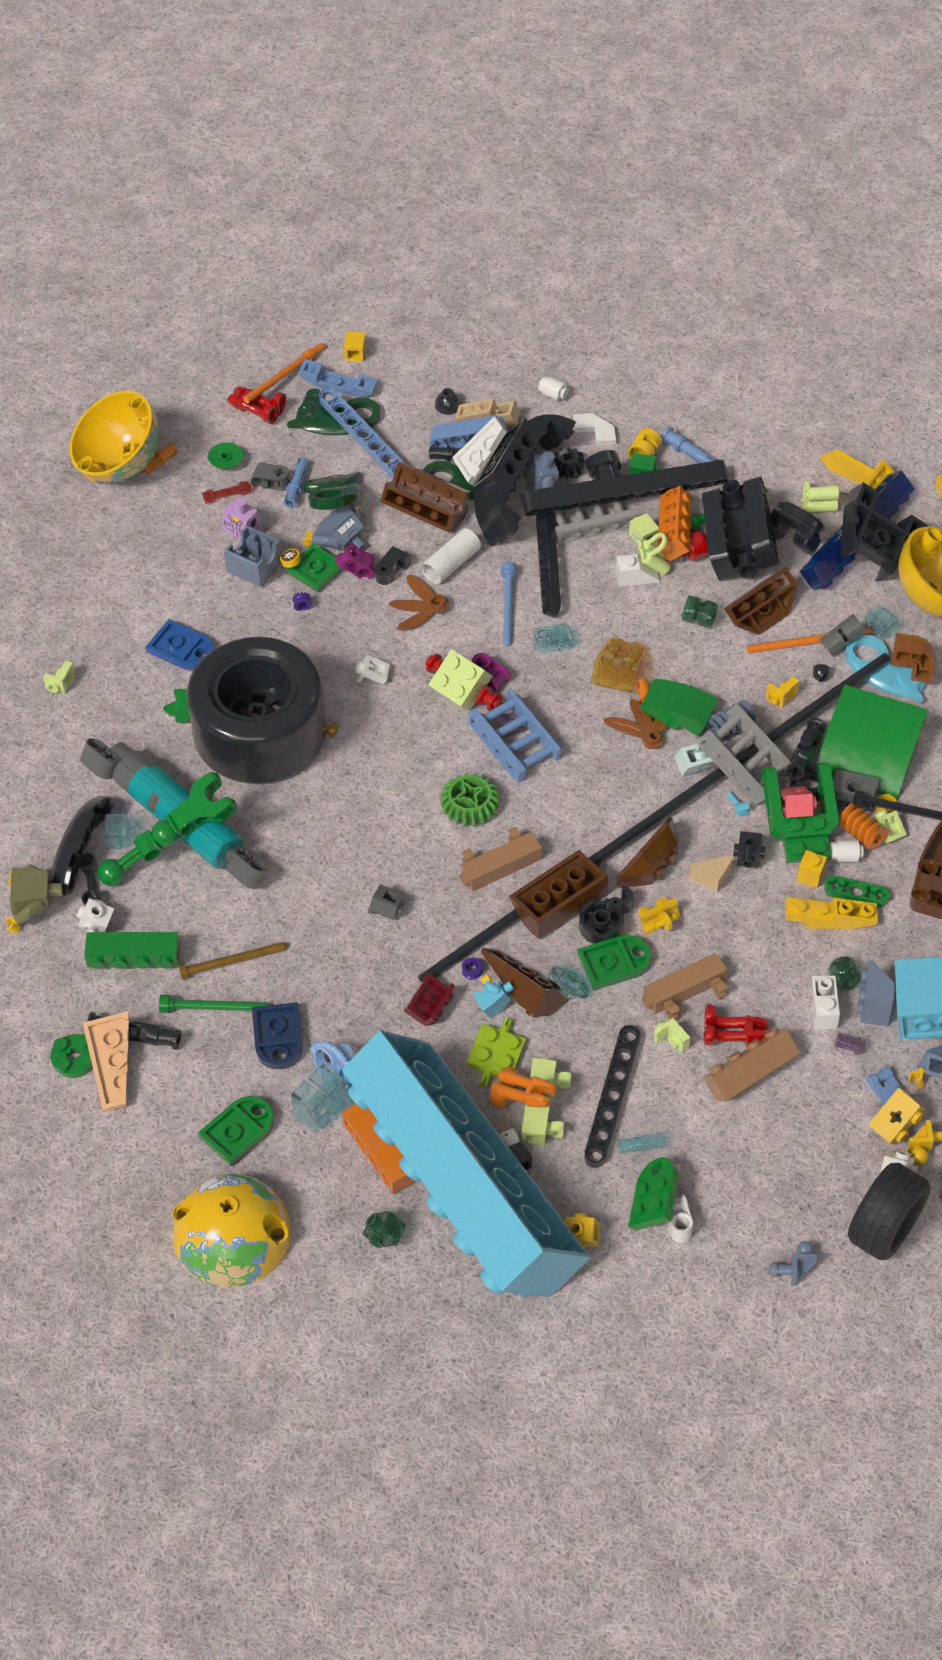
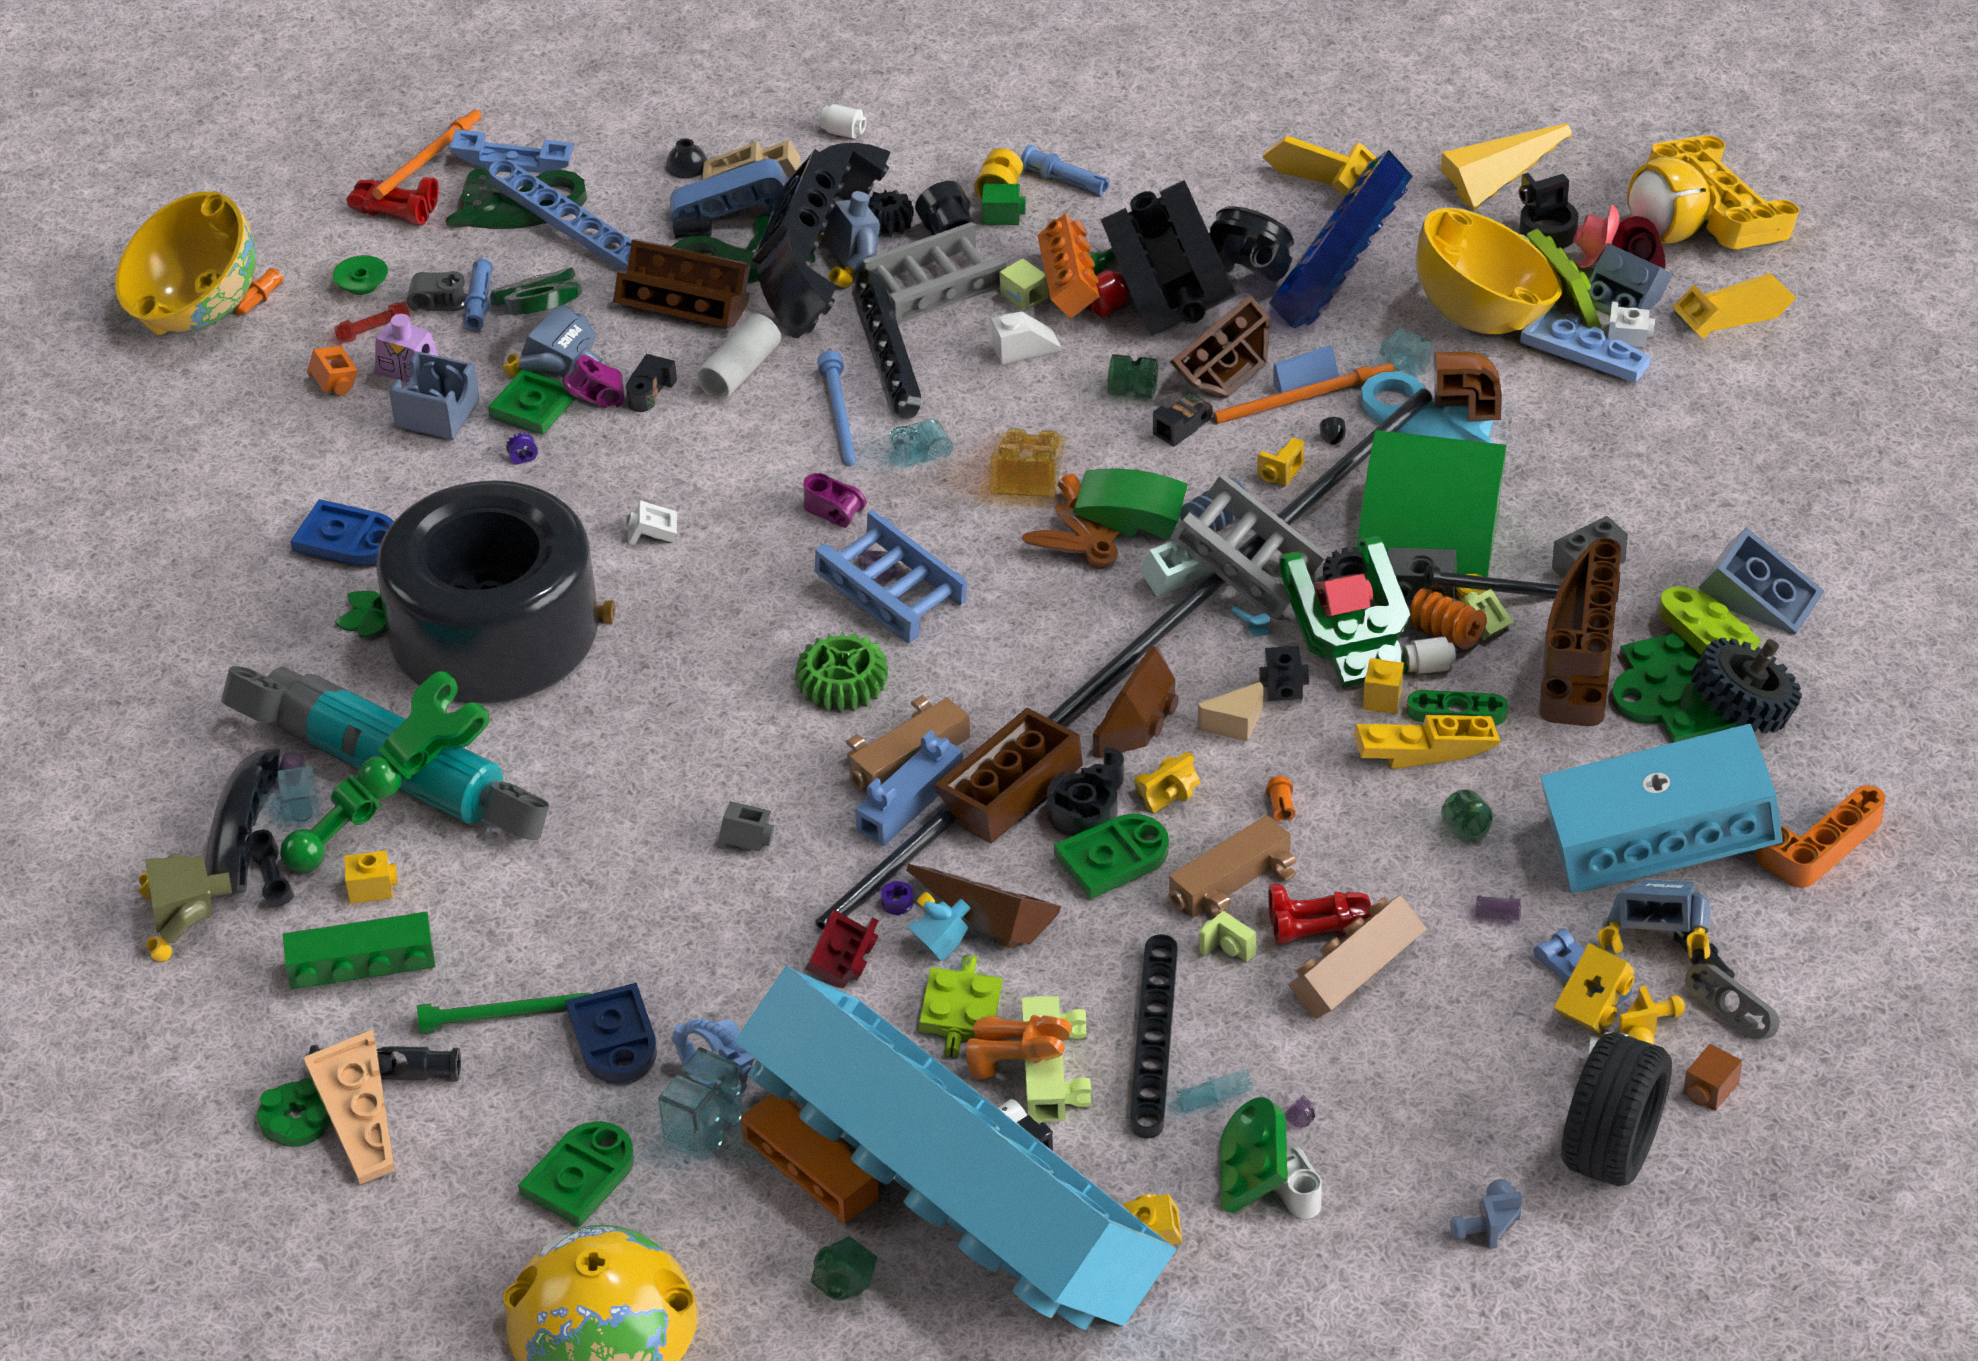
camera: 10 degrees left, 10 degrees down
(62, 680) = (167, 604): yellowish green bracket -> none
(94, 916) = (288, 911): white brick -> none
(149, 897) = (369, 876): none -> yellow brick
(197, 527) = (337, 375): none -> orange brick
(231, 959) = (449, 969): pearl gold bar -> none
(290, 558) = (492, 391): tile -> none
(354, 346) = (528, 106): yellow brick -> none
(431, 604) = (716, 431): dark orange plant -> none
(462, 681) = (793, 514): yellowish green brick -> none
(479, 449) = (751, 208): white wing -> none
(494, 893) = (907, 790): none -> medium blue brick
(569, 981) = (1055, 889): clear light blue dish -> none
(592, 423) = (930, 166): white tile -> none
(623, 487) = (976, 229): black beam -> none
(651, 554) = (1044, 311): yellowish green piece -> none
(692, 1168) = (1301, 1112): none -> clear purple hinge
(725, 647) = (1182, 417): none -> black leg
(729, 935) = (1280, 791): none -> orange pin
(805, 749) = (1336, 528): black piece -> none
(812, 624) = (1305, 369): none -> medium blue slope
(819, 498) = (1280, 203): yellowish green piece -> none
(825, 1002) = (1447, 858): white slope -> none
(842, 634) = (1353, 374): dark grey pin -> none
(872, 533) = (1366, 233): black wedge -> none
(875, 996) = (1523, 834): sand blue slope -> none

